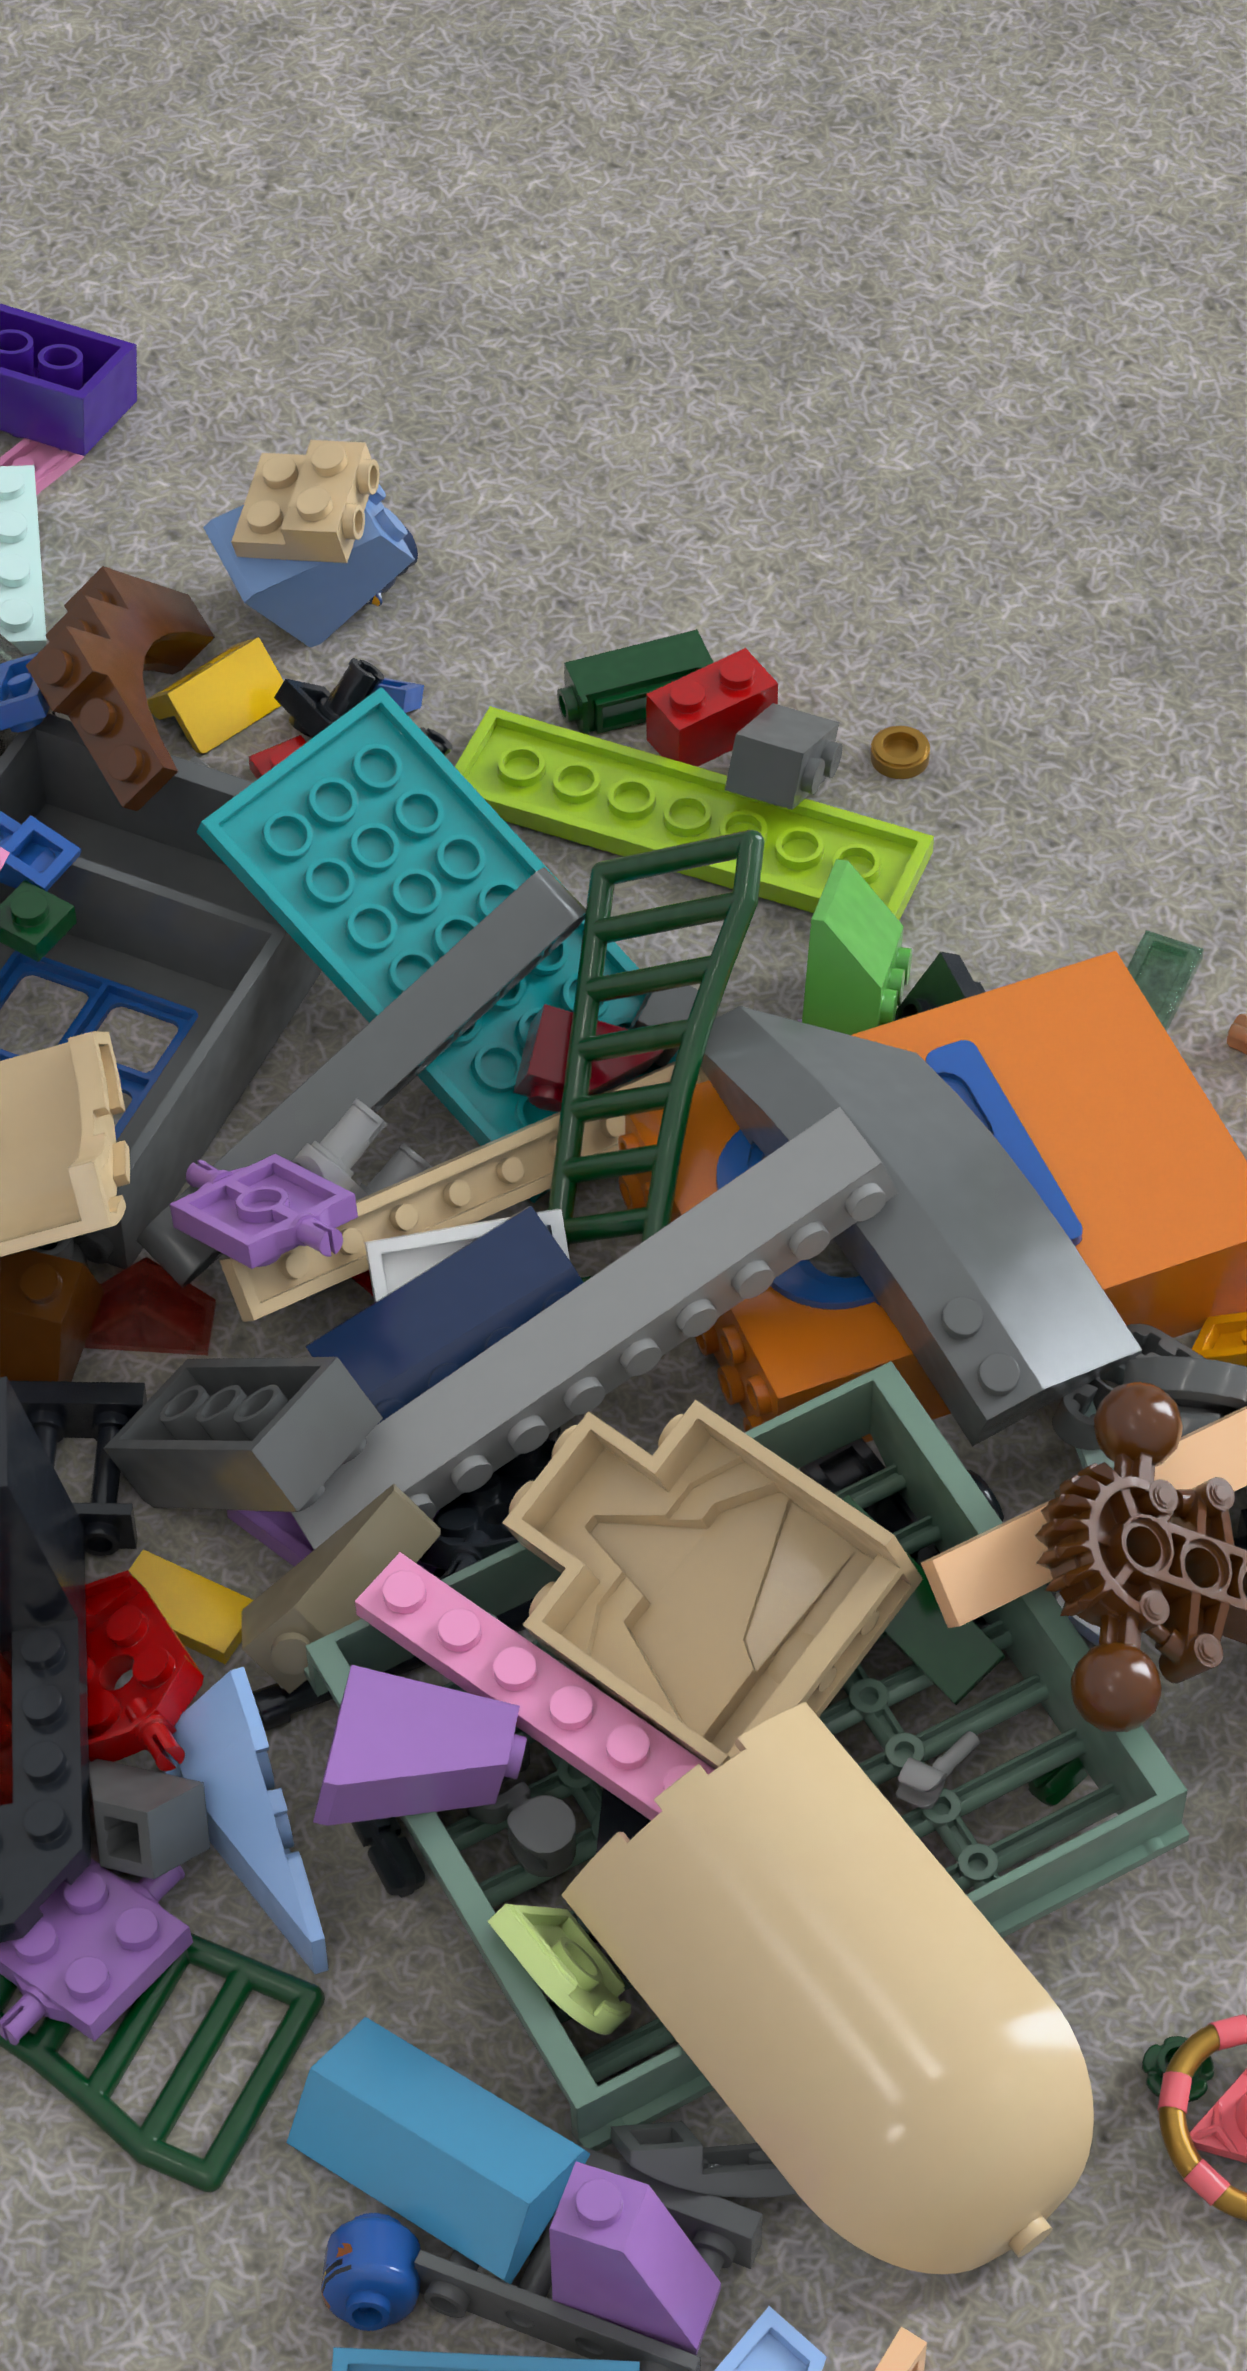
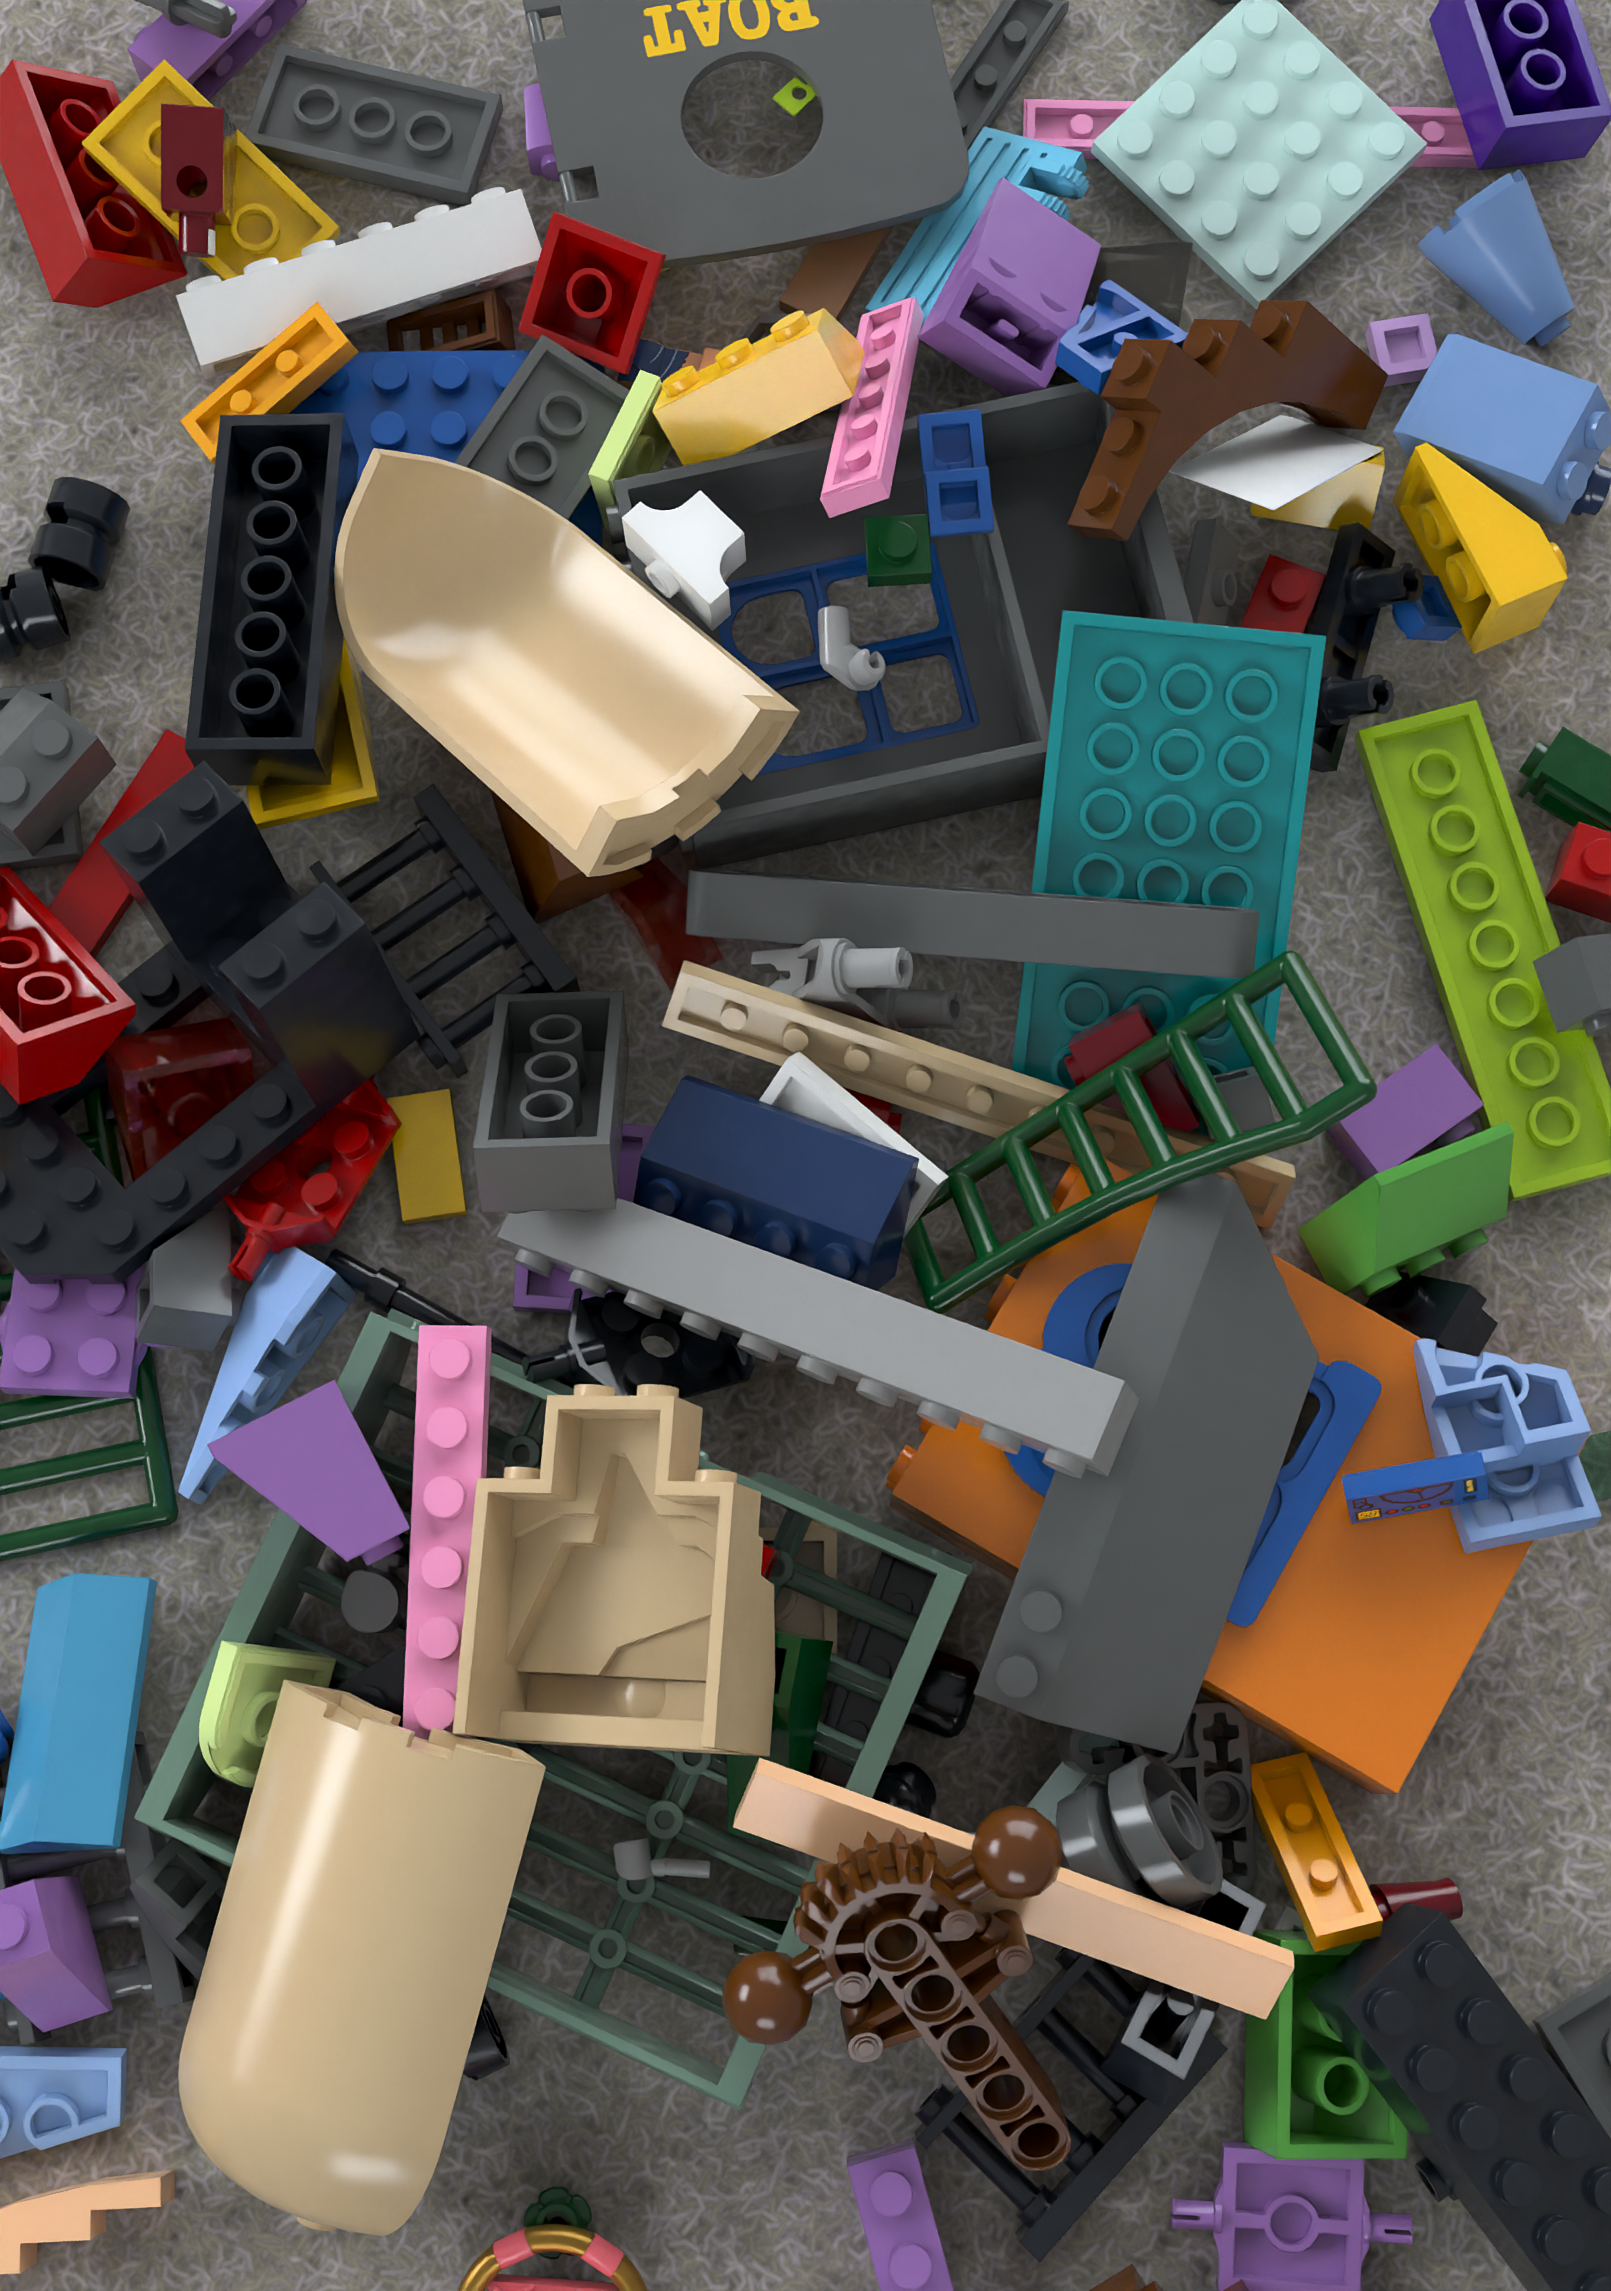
camera: 55 degrees right, 25 degrees up
(83, 1006) = (840, 657): none -> light grey arm
(170, 478) = (1505, 260): none -> medium blue cone
(180, 575) = (1402, 347): none -> lavender plate
(196, 680) = (1276, 461): none -> white sticker
(263, 1210) = (740, 962): medium lavender plate -> none
(307, 503) = (1523, 400): tan plate -> none
(323, 1586) = (474, 1275): dark tan slope -> none
(391, 614) = (1481, 548): none -> yellow slope
(772, 957) = (1411, 1113): none -> medium lavender brick
(1067, 1051) = (1416, 1487): none -> blue tile
(1079, 994) = (1529, 1440): none -> medium blue slope

